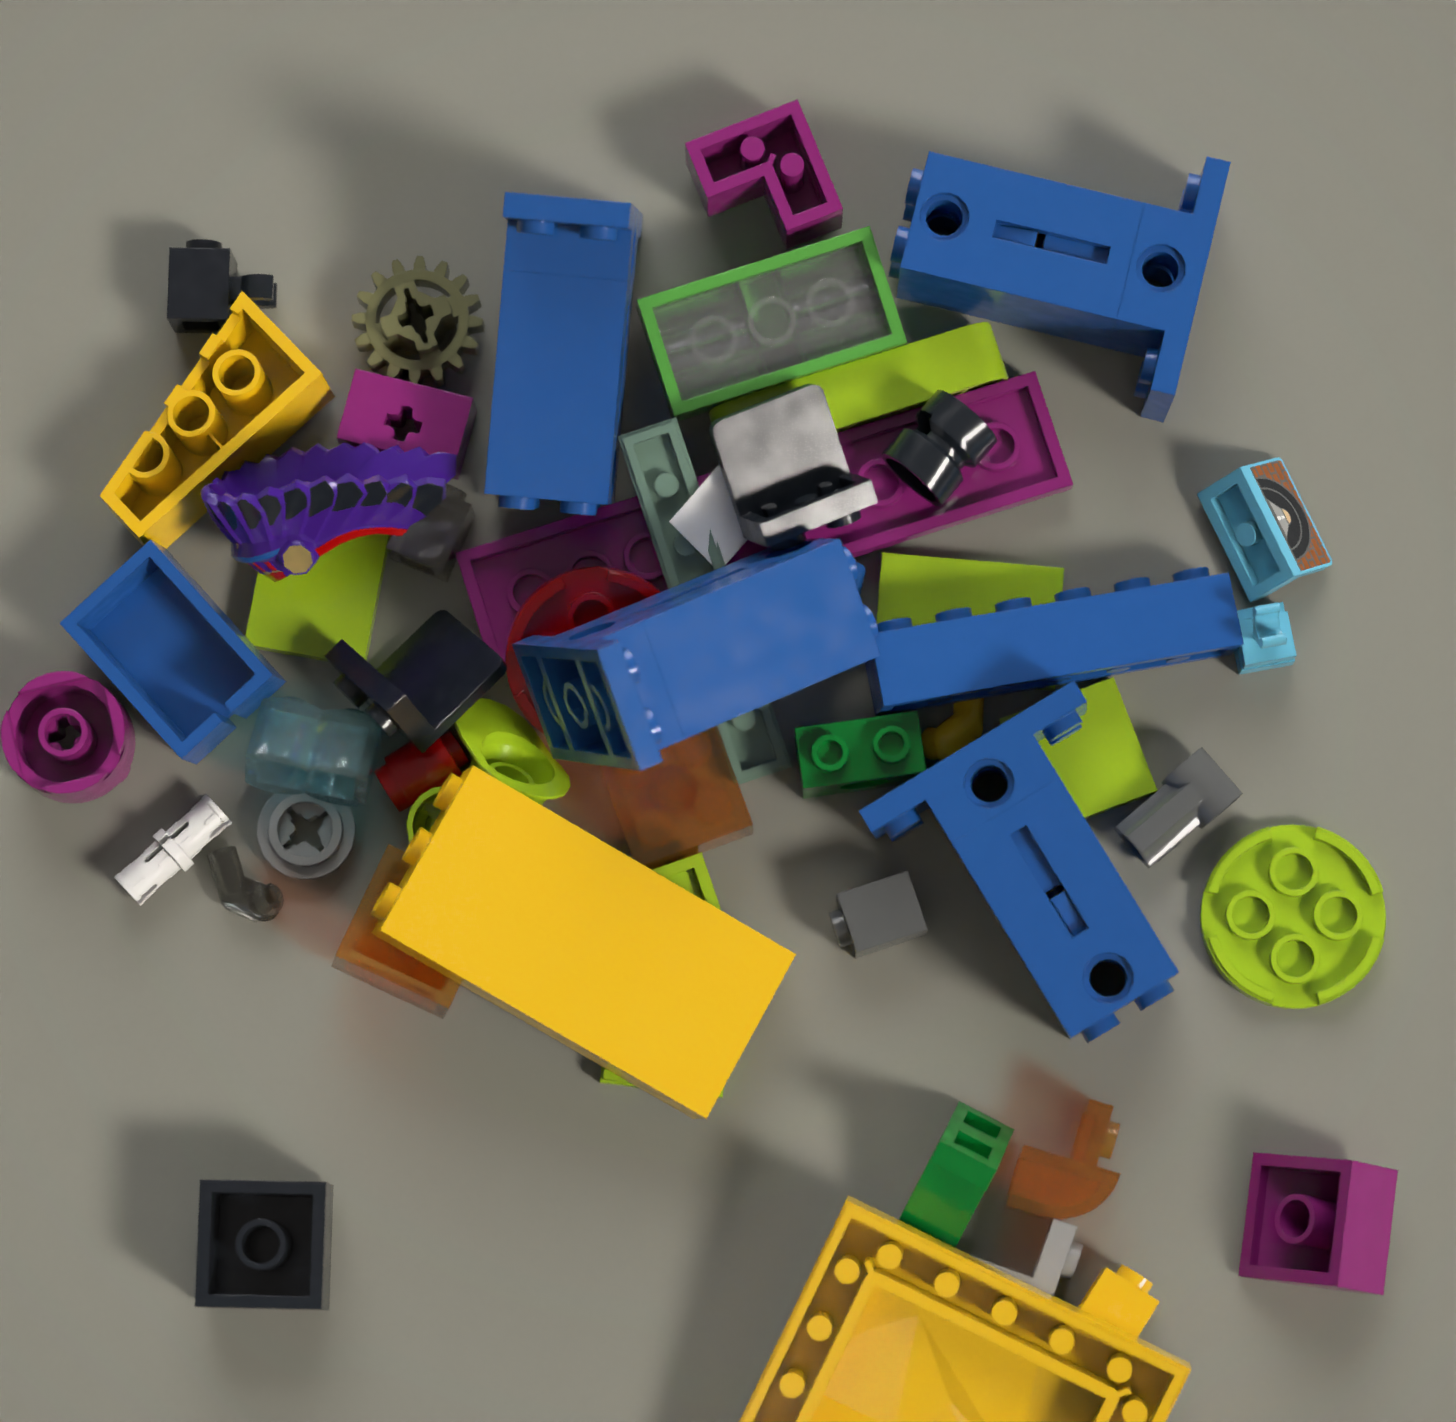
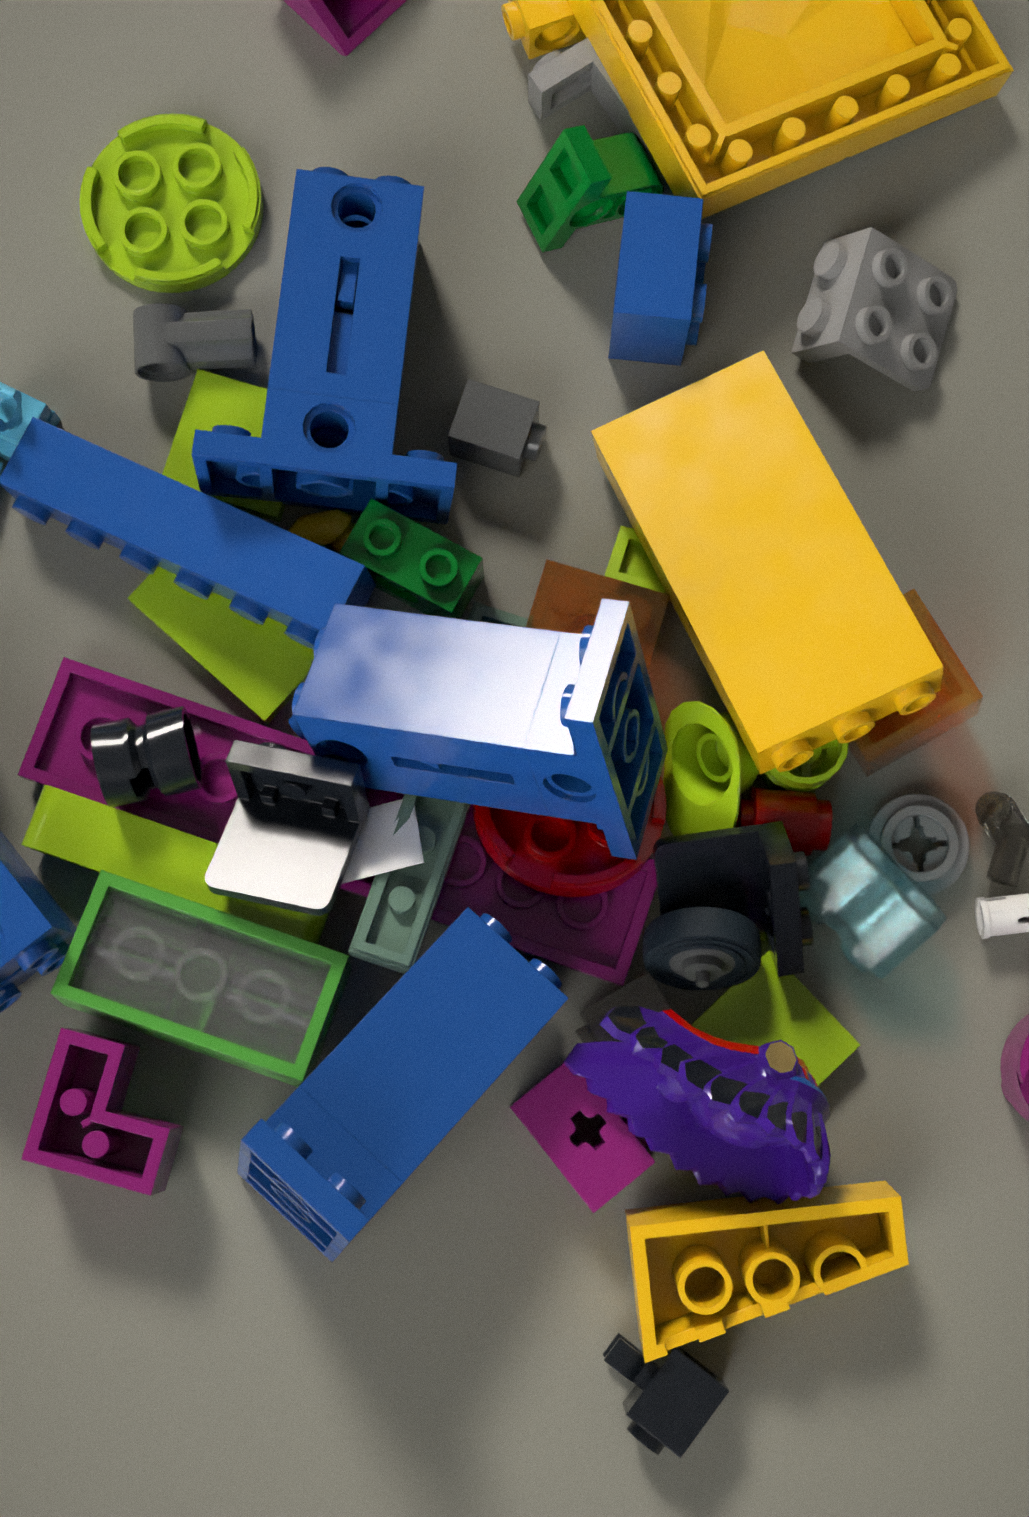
camera: 145 degrees left, 0 degrees up
(172, 652) = (935, 1077): blue piece -> none
(414, 619) = (702, 948): none -> black wheel
(440, 317) = (535, 1228): olive gear -> none
(645, 1247) = (877, 306): none -> light grey bracket
(838, 1123) = (659, 278): none -> blue brick
(1066, 1187) = (501, 119): clear orange brick -> none

